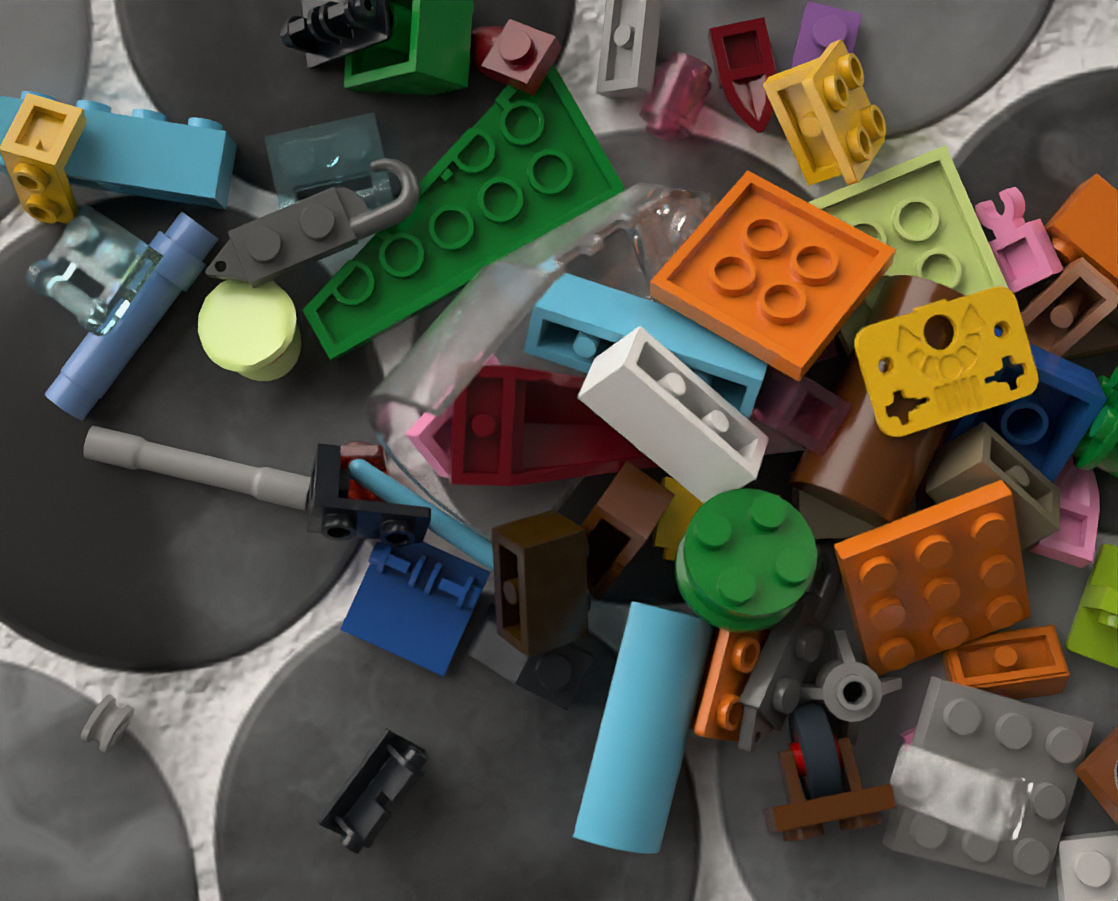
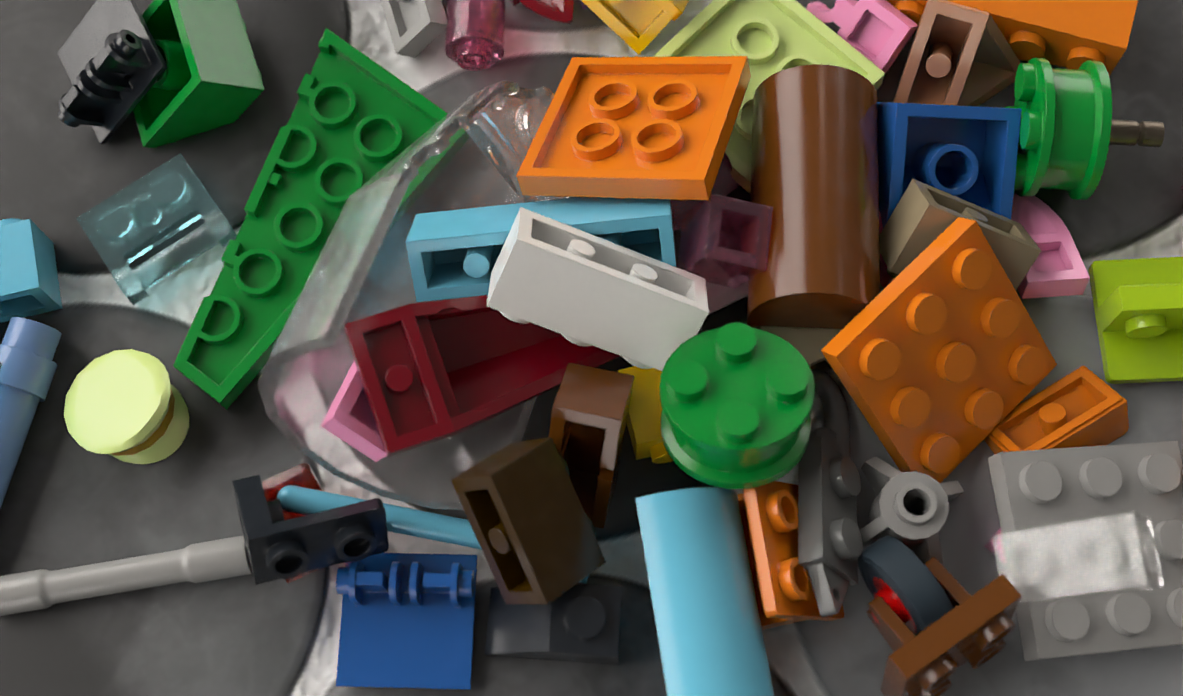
camera: 20 degrees left, 15 degrees down
(311, 230) = (150, 282): dark grey plate -> none
(513, 54) = (301, 45): dark red plate -> none
(947, 377) = (857, 139): yellow axle -> none

